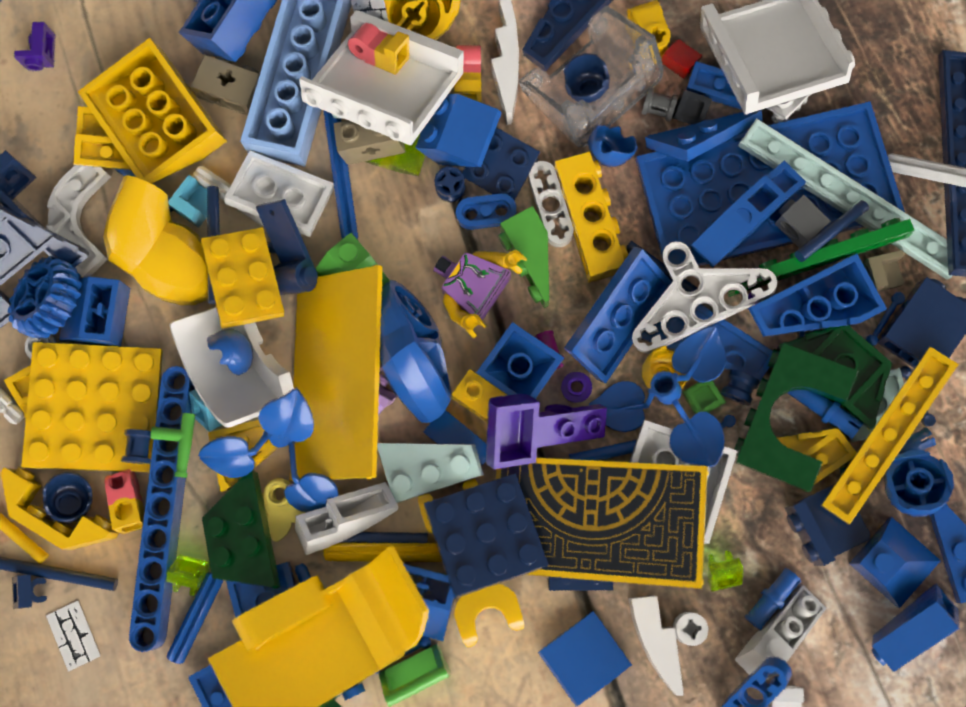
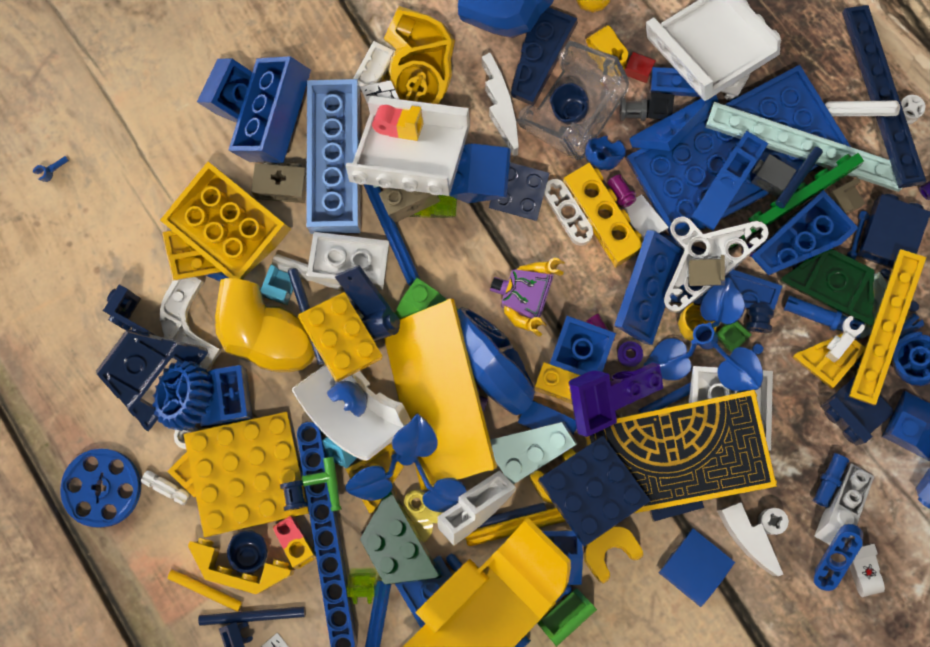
camera: 15 degrees left, 0 degrees up
(41, 48) = (116, 193): dark purple bracket -> none
(450, 177) = (481, 212): dark blue wheel -> none
(471, 79) = (477, 132): leg -> none
(485, 208) = (517, 231): blue plate -> none
(529, 236) = (561, 243): bright green slope -> none
(620, 196) = (622, 191): none -> magenta pin
(637, 231) = (644, 217): none -> white sticker
(691, 313) = (707, 272): none -> dark tan bracket
(724, 573) = (788, 470): clear neon green tile -> none
(791, 371) = (789, 363): dark green arch -> none
(826, 441) = (840, 344): none -> white plate

